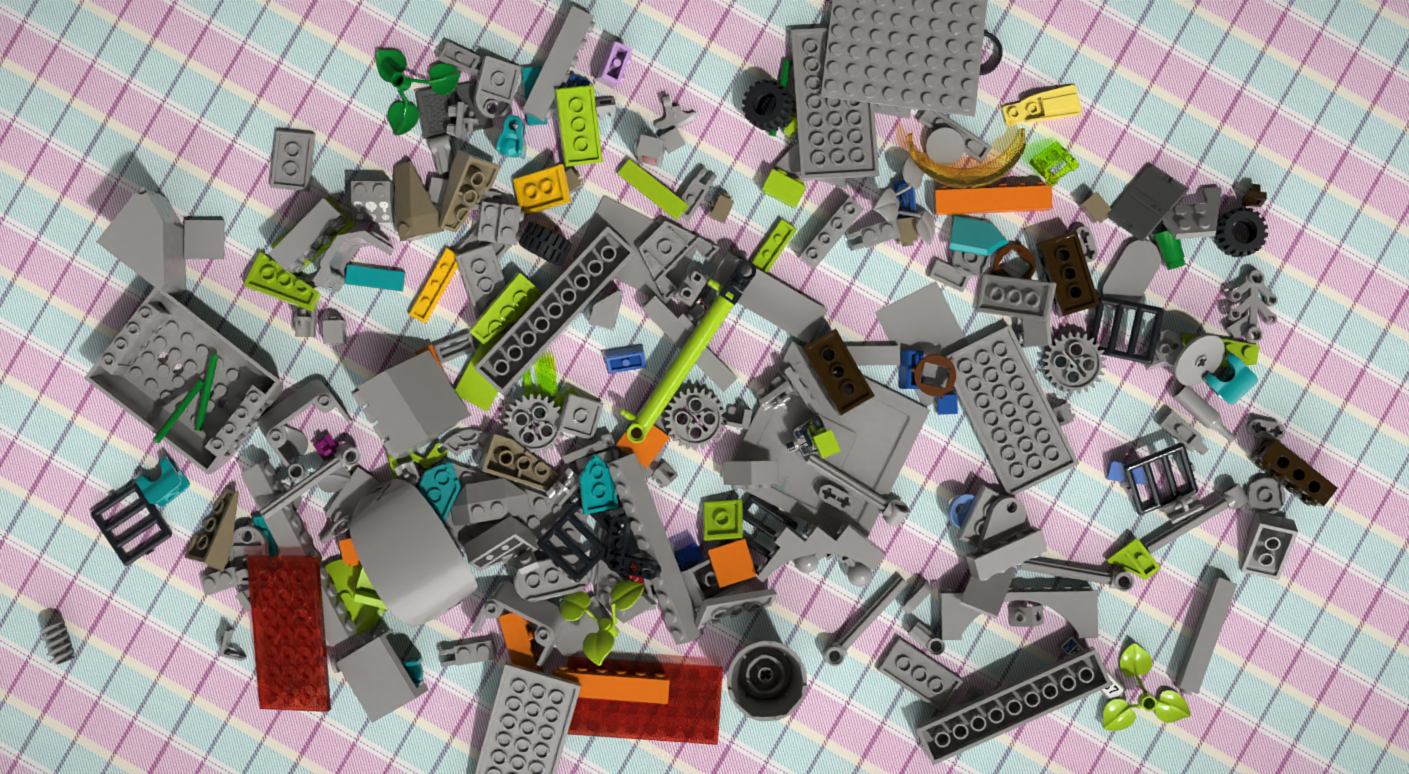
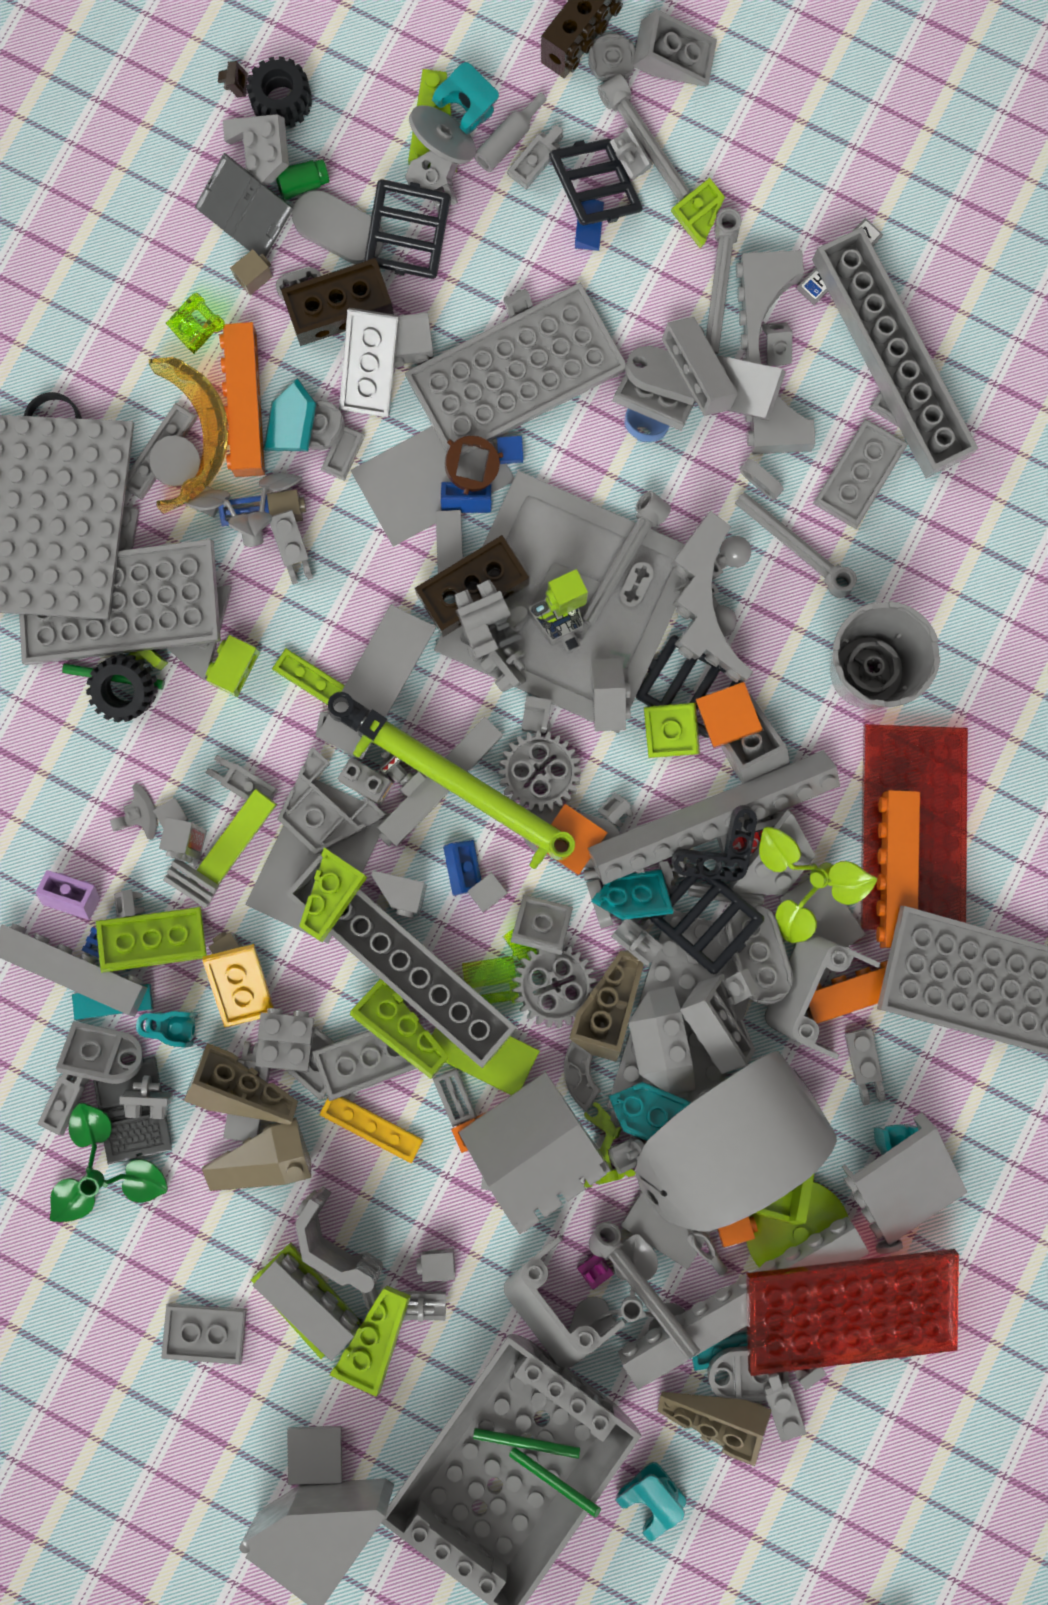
camera: 95 degrees left, 5 degrees down
(117, 544) = (742, 1563): black bar -> none
(224, 644) = (872, 1403): light grey bracket -> none
(372, 201) = (257, 1219): light grey slope -> none
(375, 278) = (363, 1211): teal tile -> none
(442, 148) = (186, 1125): light grey piece -> none
(545, 243) = (310, 977): black tyre -> none
(589, 449) = (584, 910): light grey hinge -> none
(605, 260) = (331, 894): none -> lime wing
(605, 376) = (487, 892): none -> light grey panel
(618, 154) = (190, 885): none -> light grey tile
(688, 556) = (720, 773): clear blue brick -> none
(716, 608) = (784, 711): light grey wing -> none
(721, 208) = (259, 747): dark tan brick -> none
(813, 378) = (484, 612): none -> light grey hips
(831, 233) = (290, 602): light grey brick -> none
(925, 638) = (813, 465): light grey piece -> none
(1022, 252) = (311, 361): reddish brown piece -> none
(1044, 106) = (122, 340): light yellow piece -> none
(1088, 351) = (466, 307): light grey gear -> none
(1168, 708) = (884, 168): lime plant -> none
(1205, 635) = (791, 122): light grey brick -> none
(1238, 327) = (399, 93): light grey piece -> none
(1254, 304) = (343, 76): light grey plant -> none
(1266, 425) = (523, 59): light grey beam -> none

